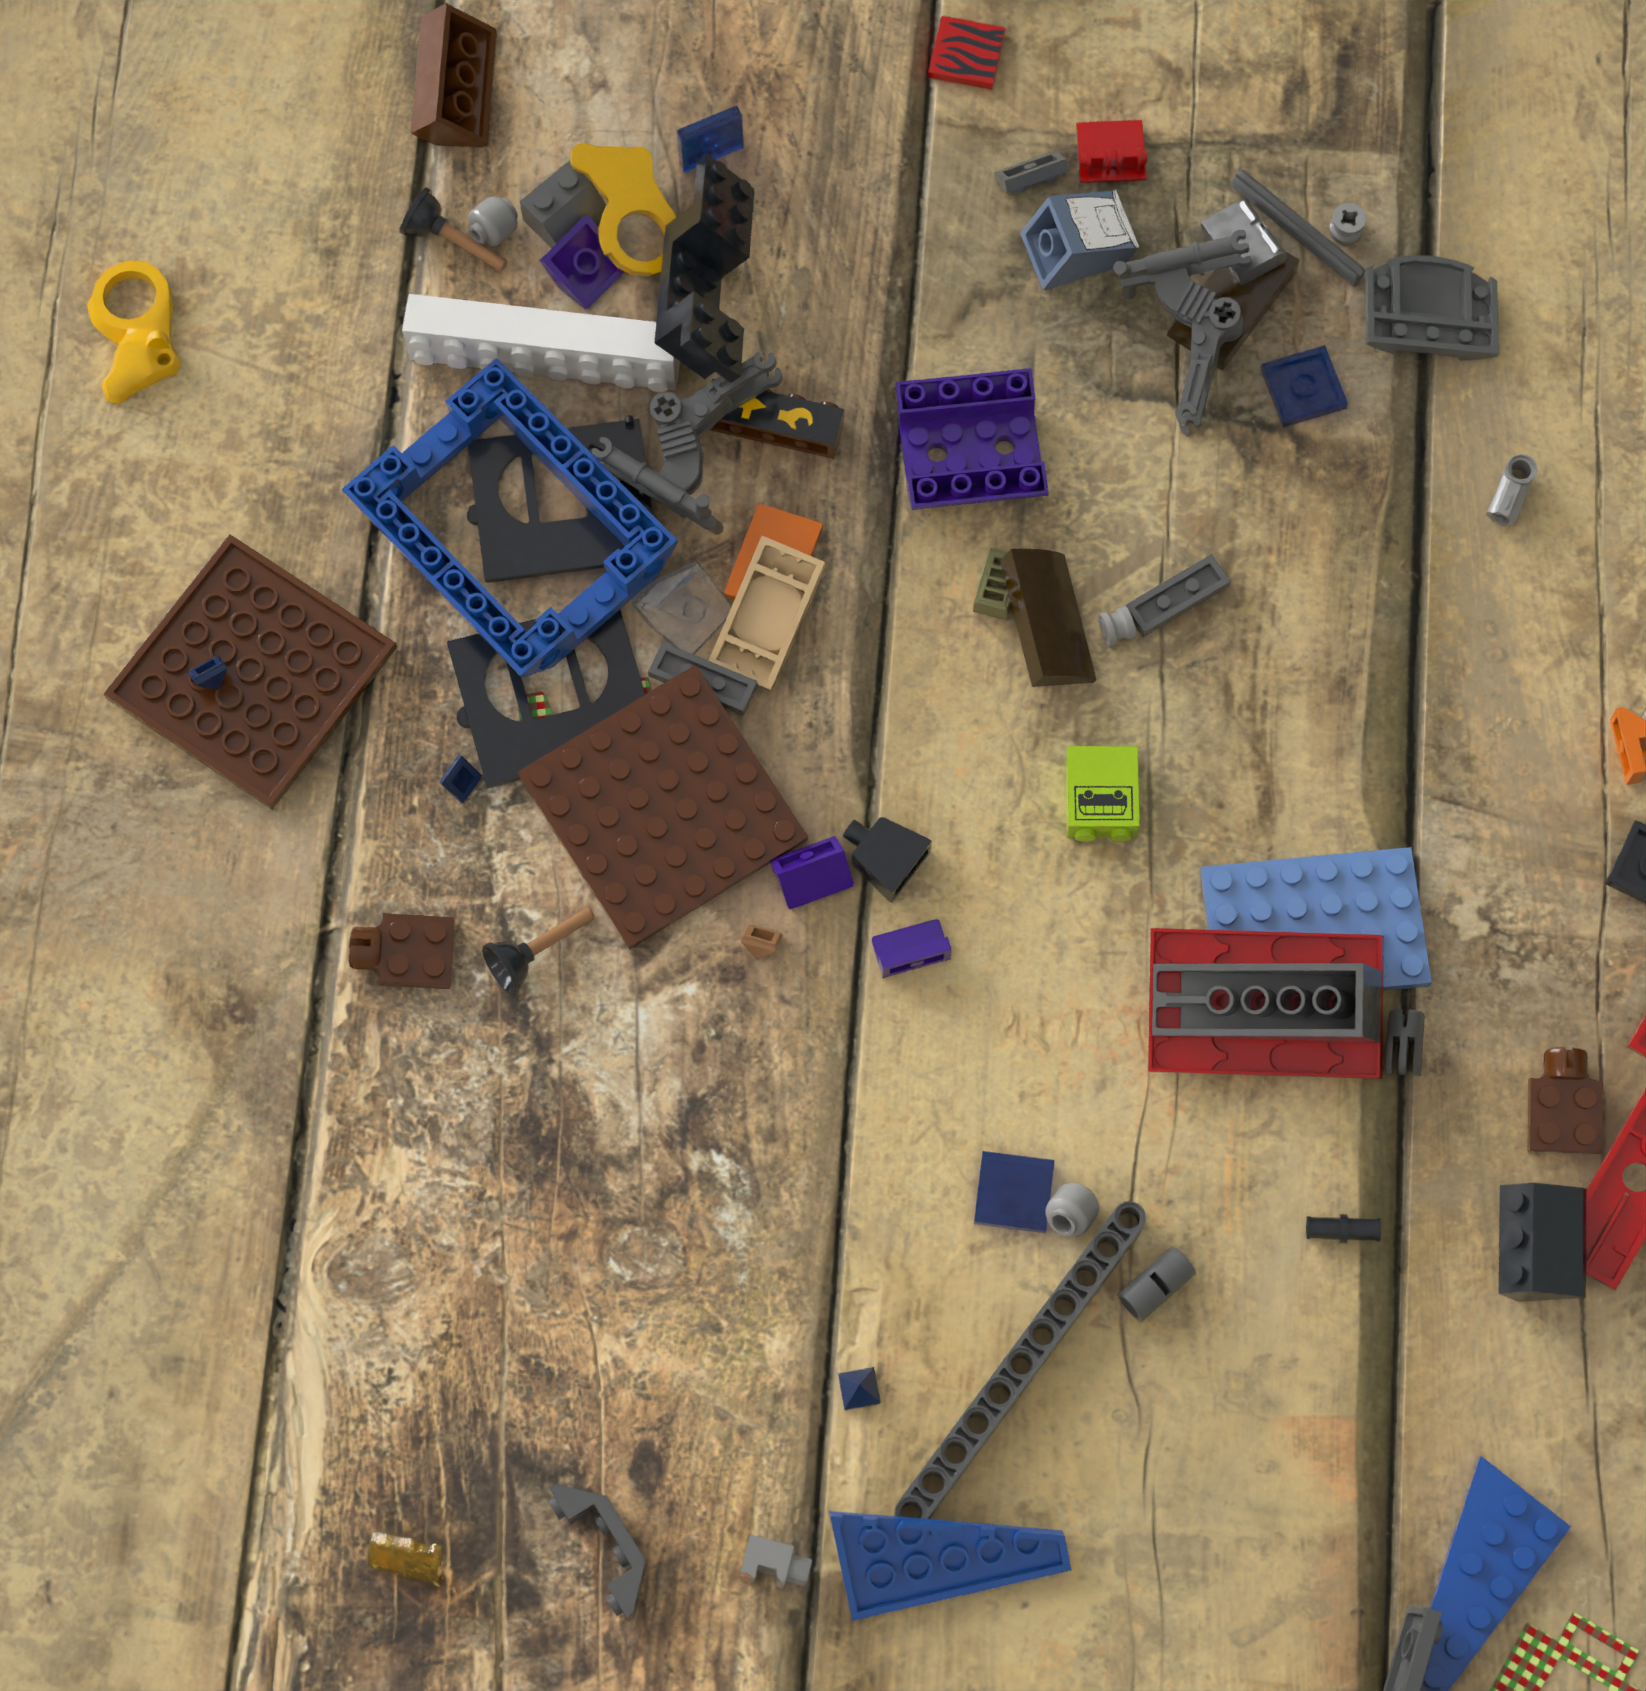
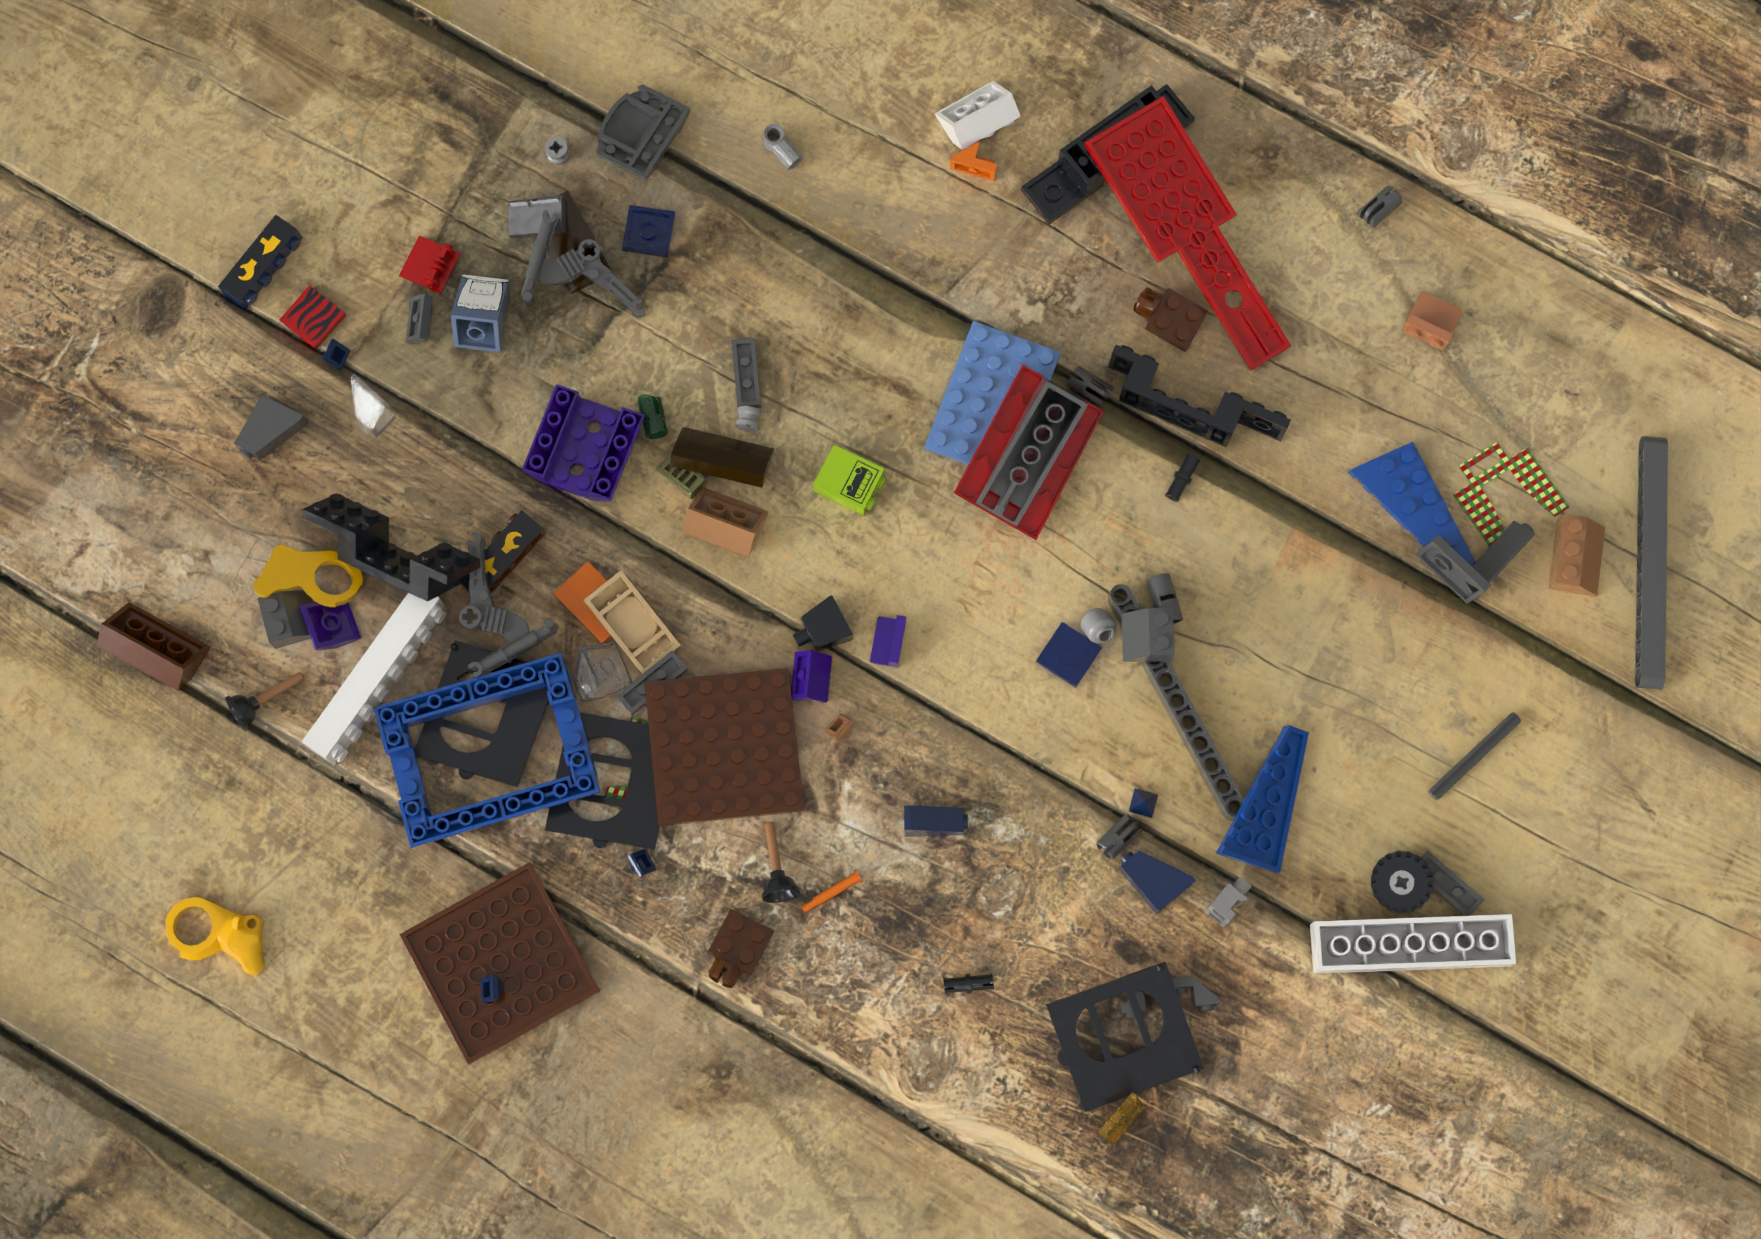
camera: 65 degrees left, 5 degrees up
(492, 221) = (270, 667): light grey head -> none
(498, 1268) = (968, 983): none -> black pin
(506, 1570) = (1157, 1063): none -> black door
(540, 1036) = (832, 891): none -> orange piece
(692, 1116) = (934, 821): none -> dark blue slope
(715, 135) = (289, 502): clear blue tile -> none
(756, 1451) = (1154, 879): none -> dark blue slope
(786, 1362) = (1113, 841): none -> dark grey arm
(793, 70) = (268, 428): none -> dark grey slope
(882, 170) = (370, 409): none -> clear slope
(932, 101) = (336, 354): none -> dark blue slope
(962, 663) = (724, 522): none -> medium nougat slope
(1056, 508) = (654, 420): none -> clear green arm
(1088, 1278) = (1148, 635): none -> dark grey slope
(1298, 227) = (542, 180): dark grey axle -> none
(1458, 1243) = (1216, 428): none -> black bracket
(1542, 1242) = (1247, 369): black slope -> none

